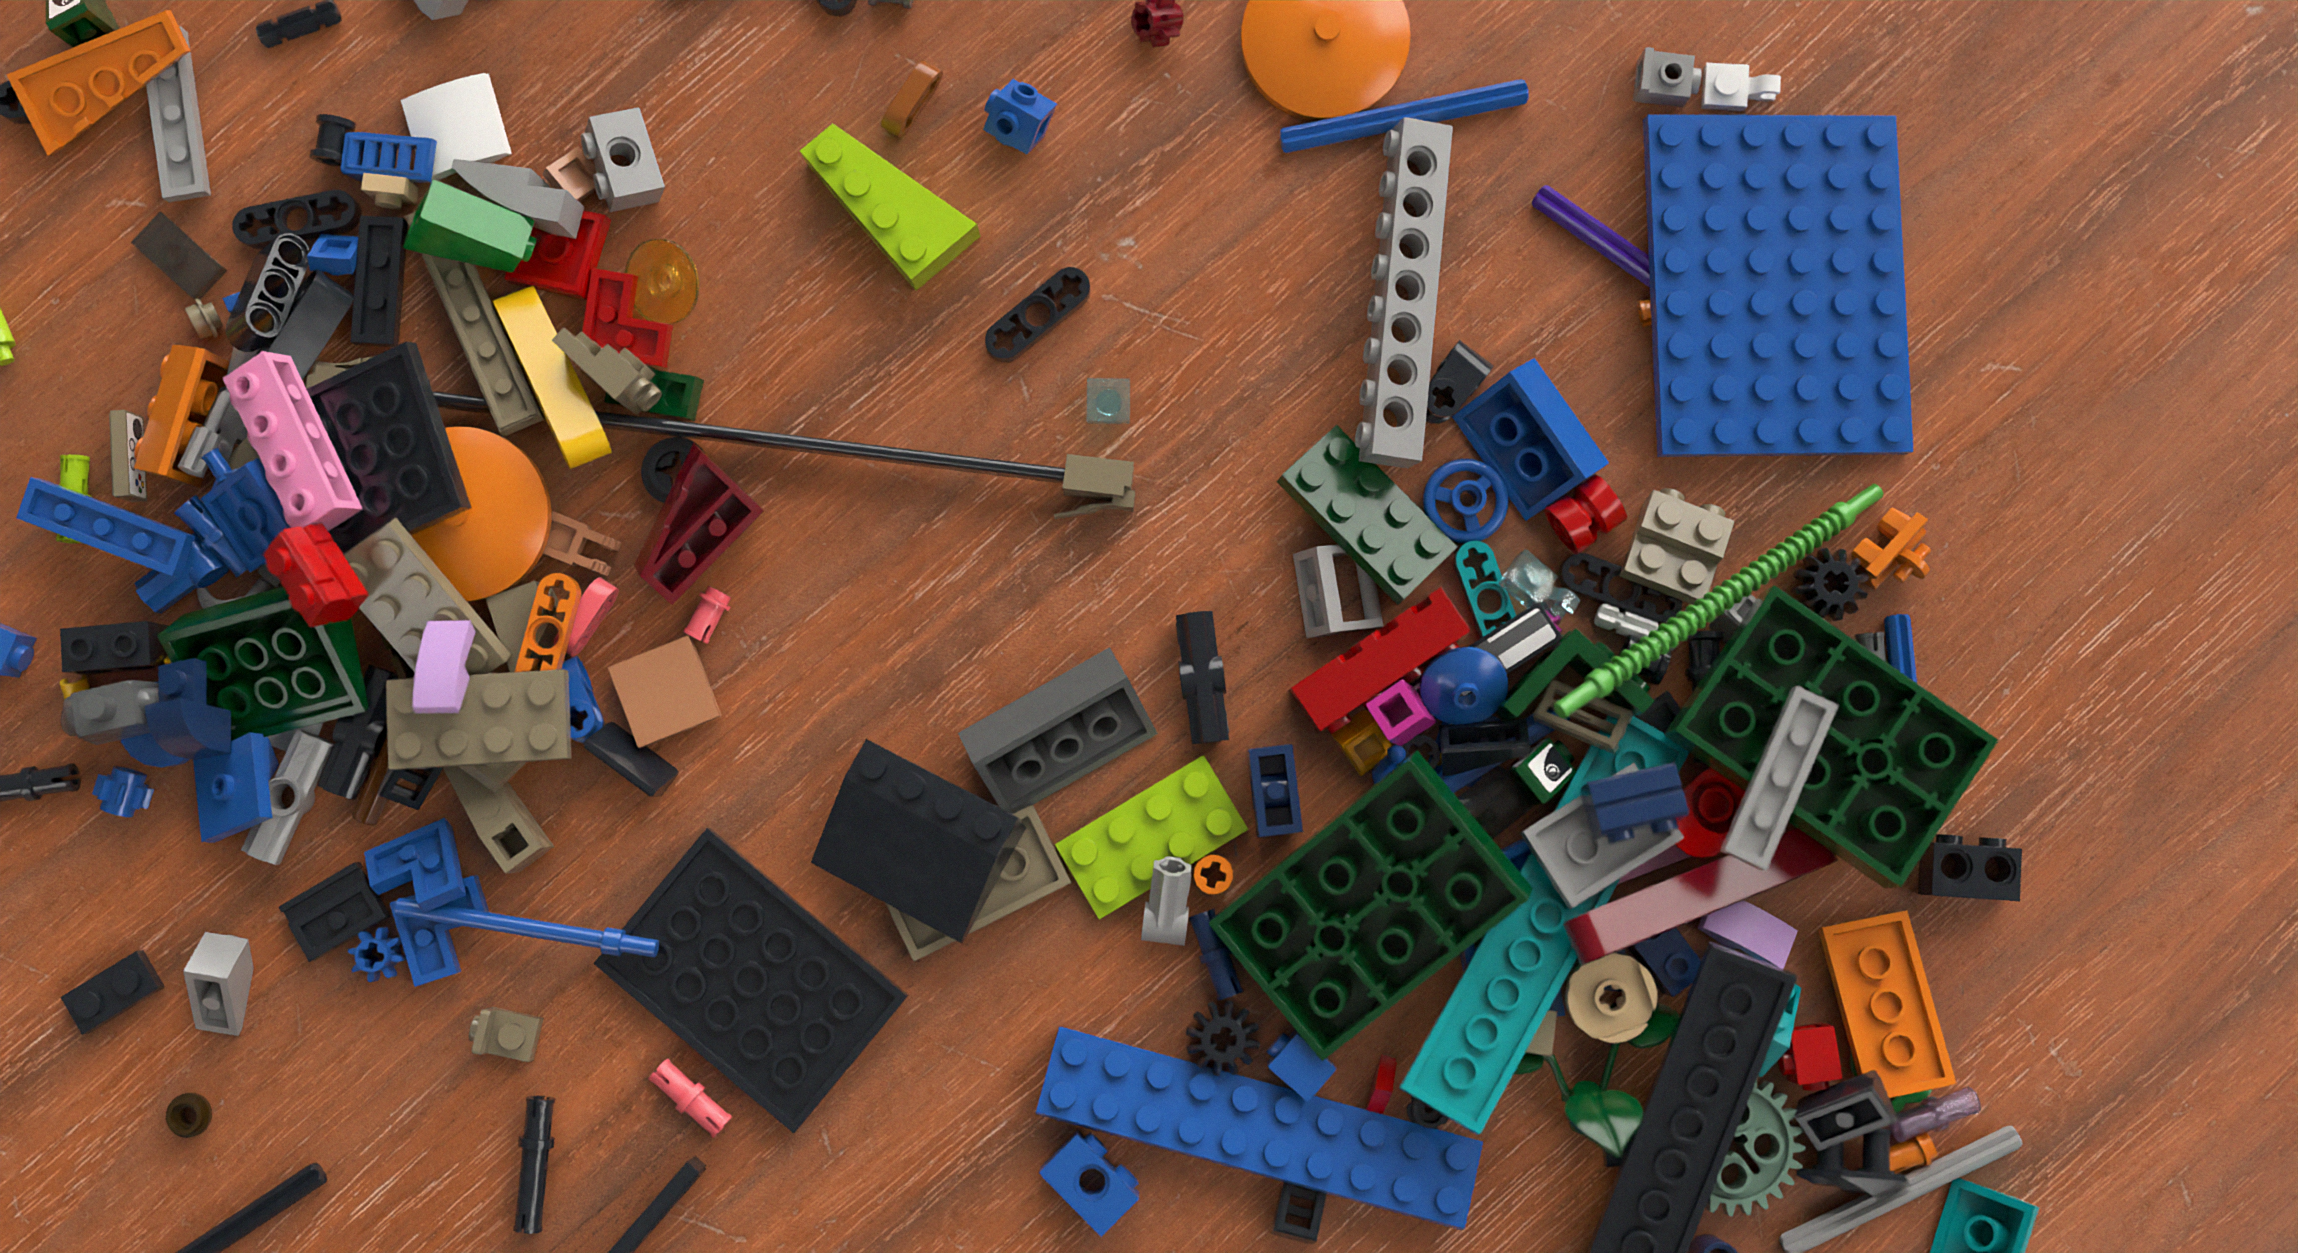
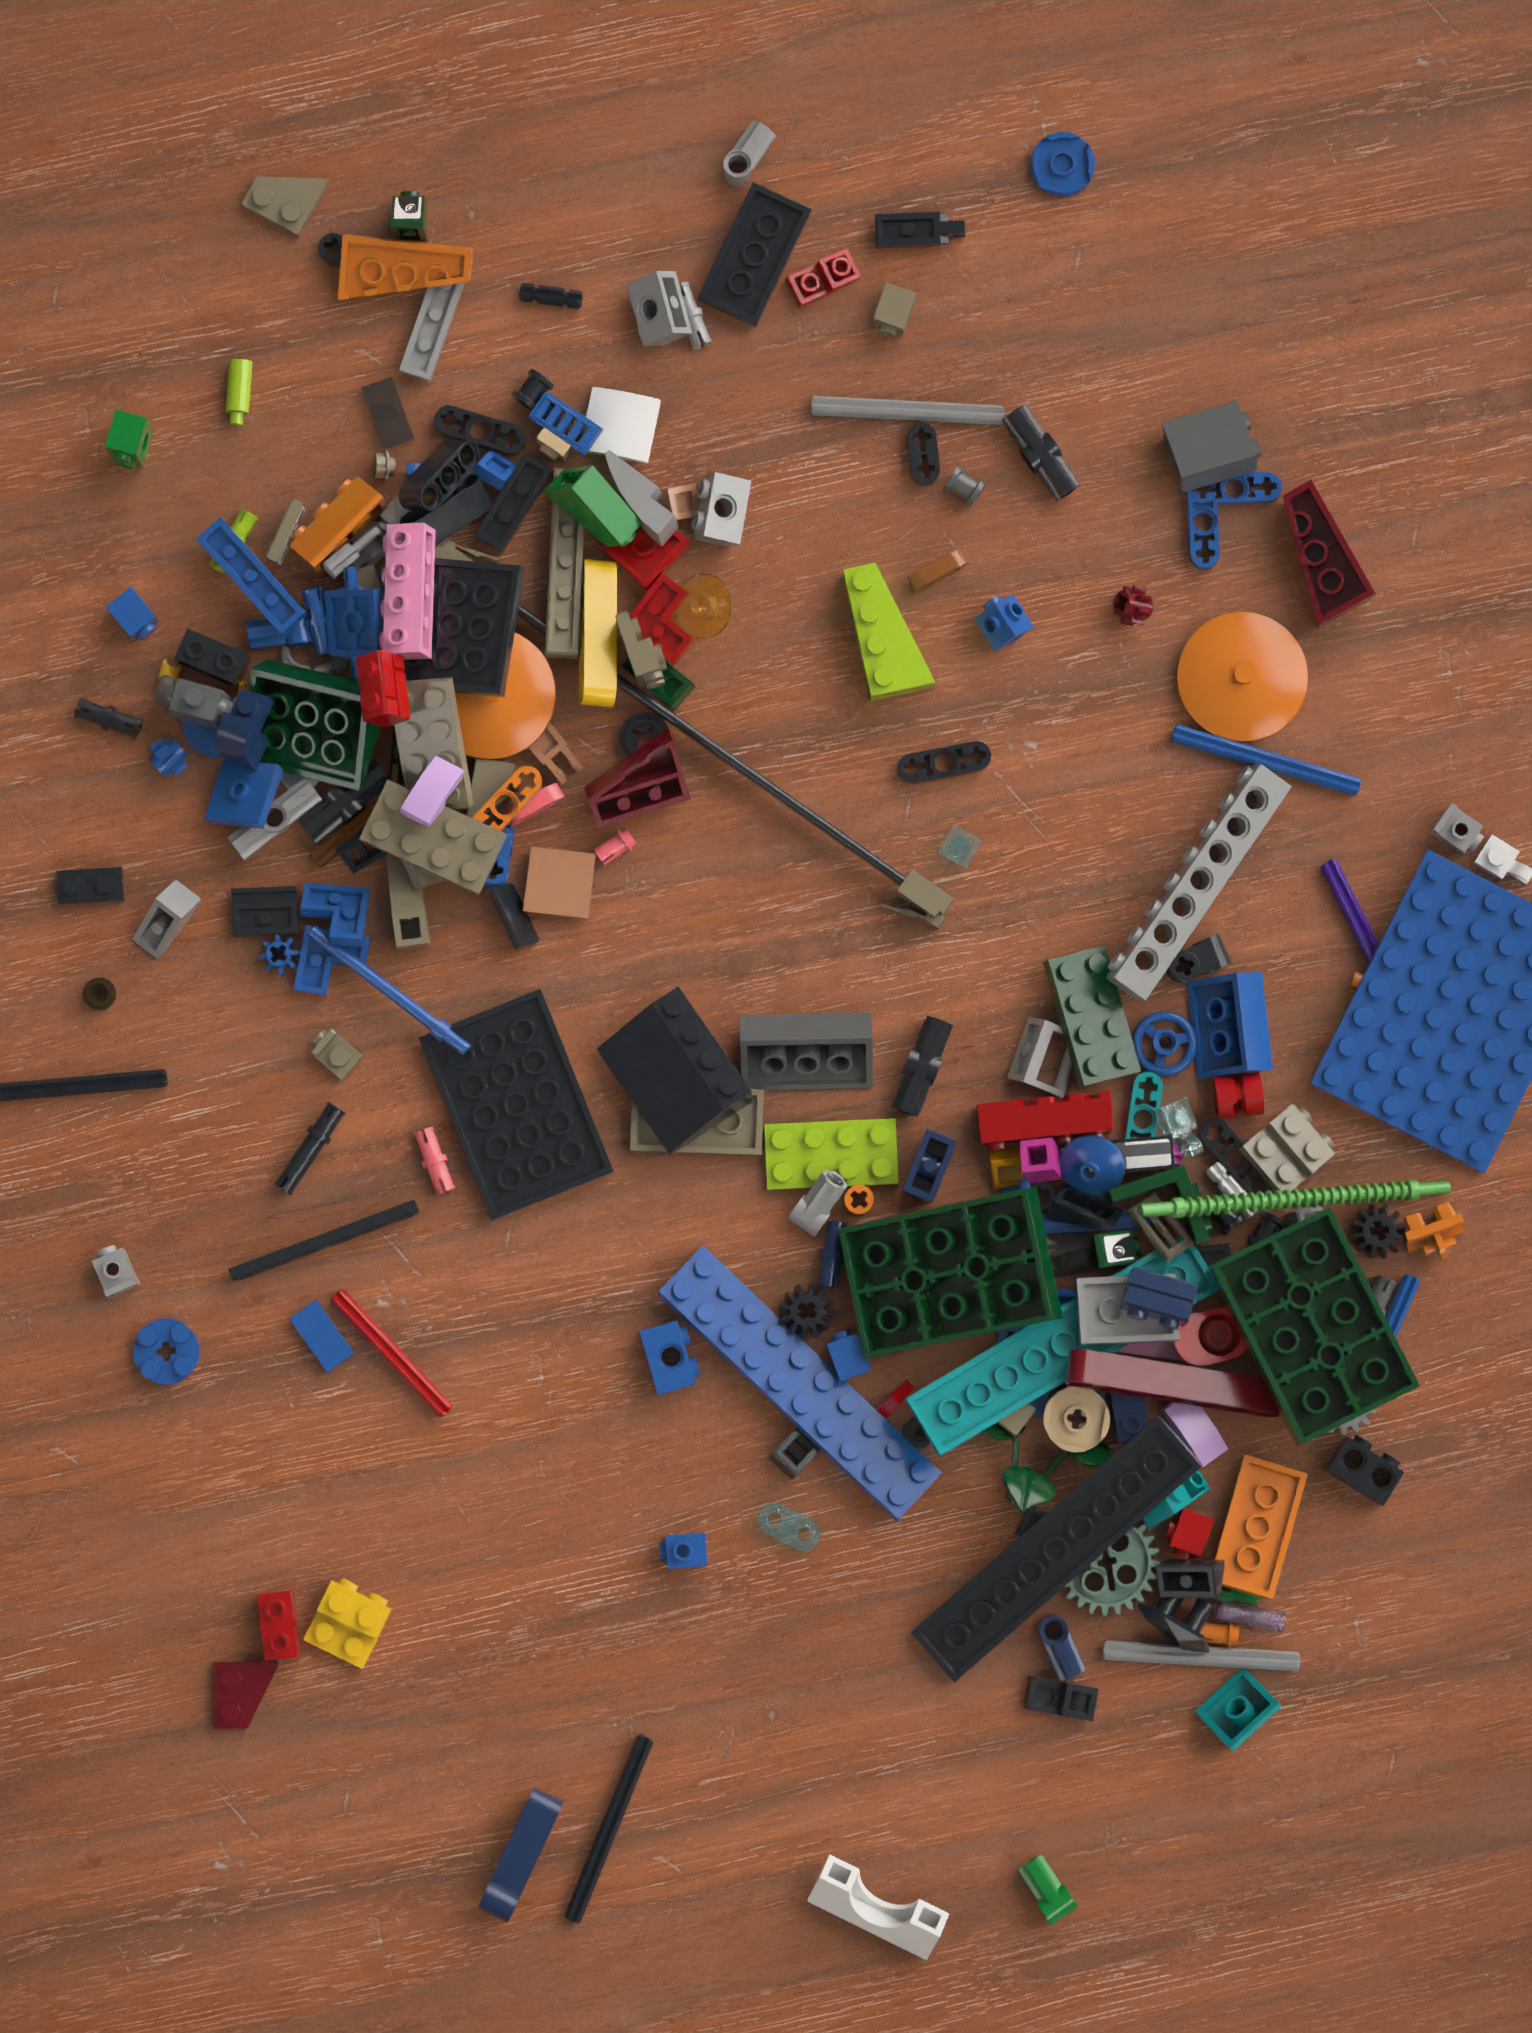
camera: 30 degrees right, 0 degrees up
(1779, 778) = (1259, 1330): light grey plate -> none

